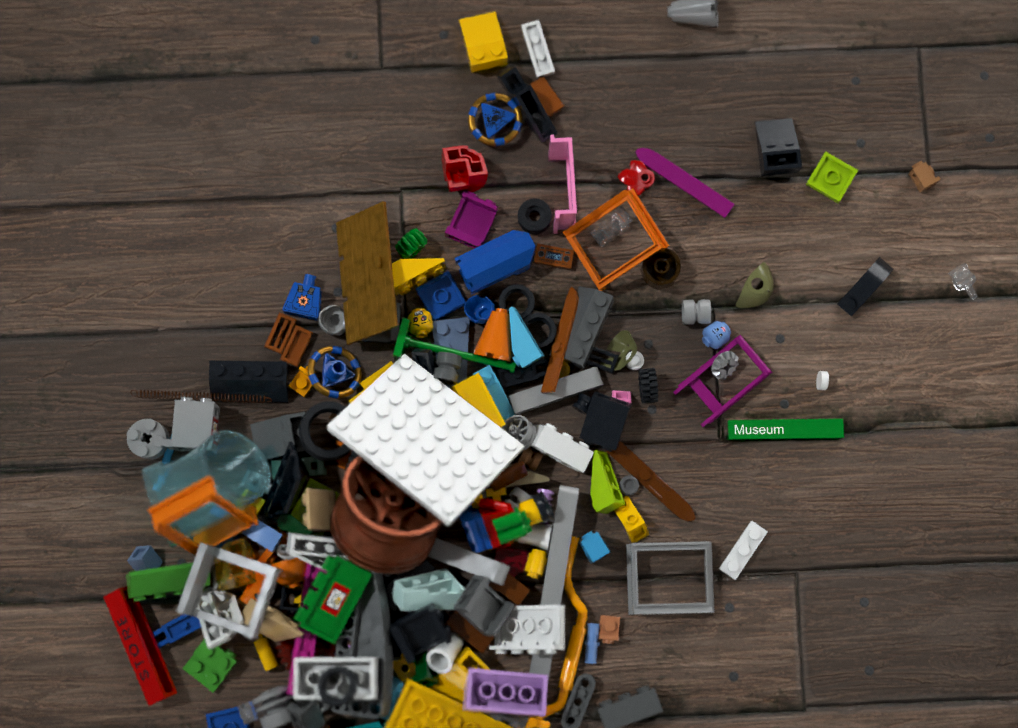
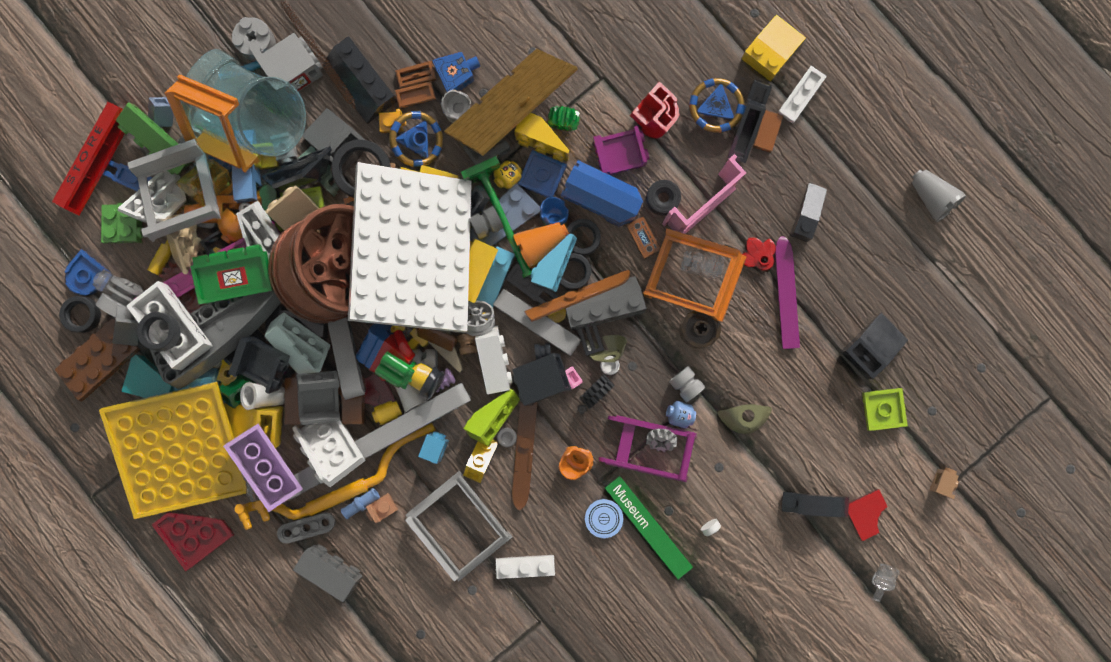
camera: 55 degrees right, 5 degrees up
(635, 116) = (809, 213): none -> slope
(691, 445) = (575, 462): none -> orange hair
(752, 458) = (604, 518): none -> light blue tile
(901, 255) = (865, 514): none -> red tile

